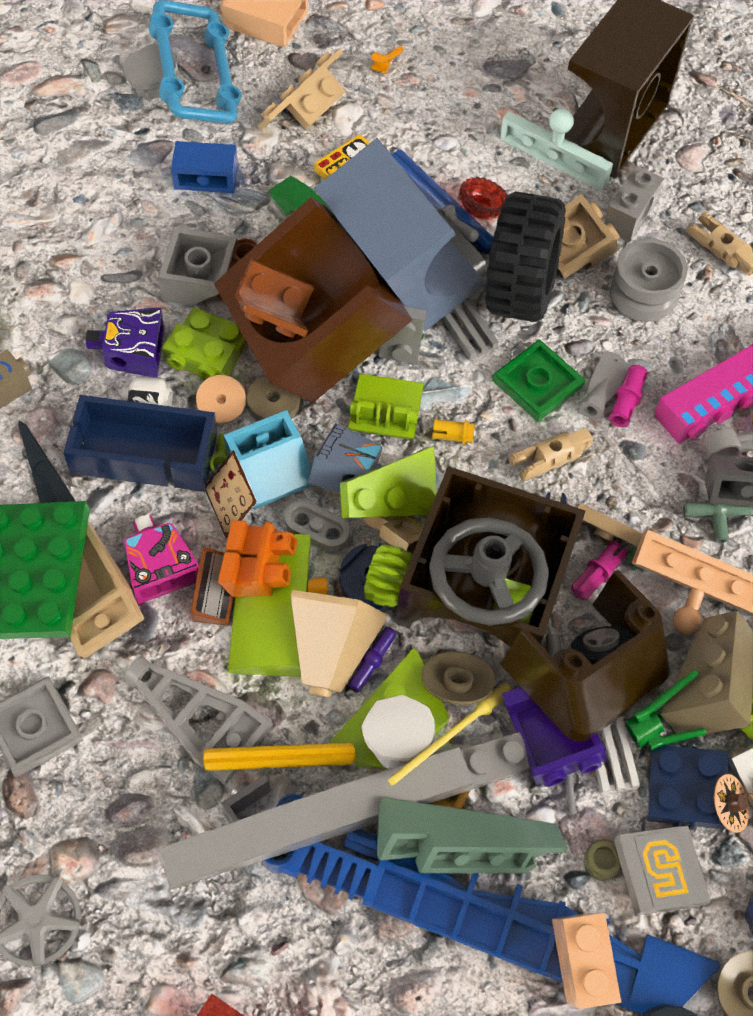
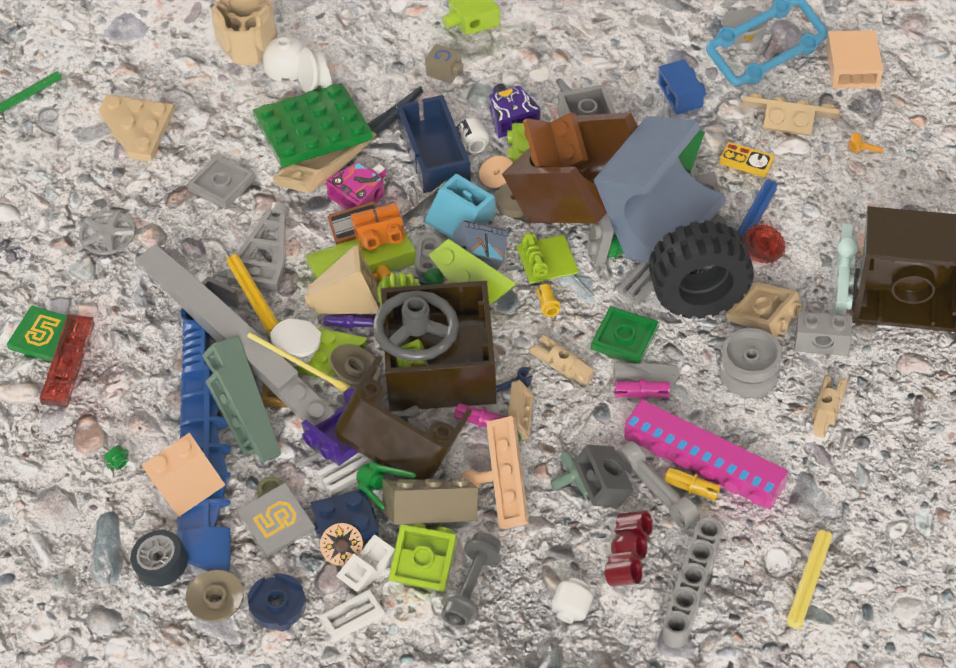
camera: 70 degrees right, 10 degrees down
(359, 534) = (433, 276): none -> green hinge

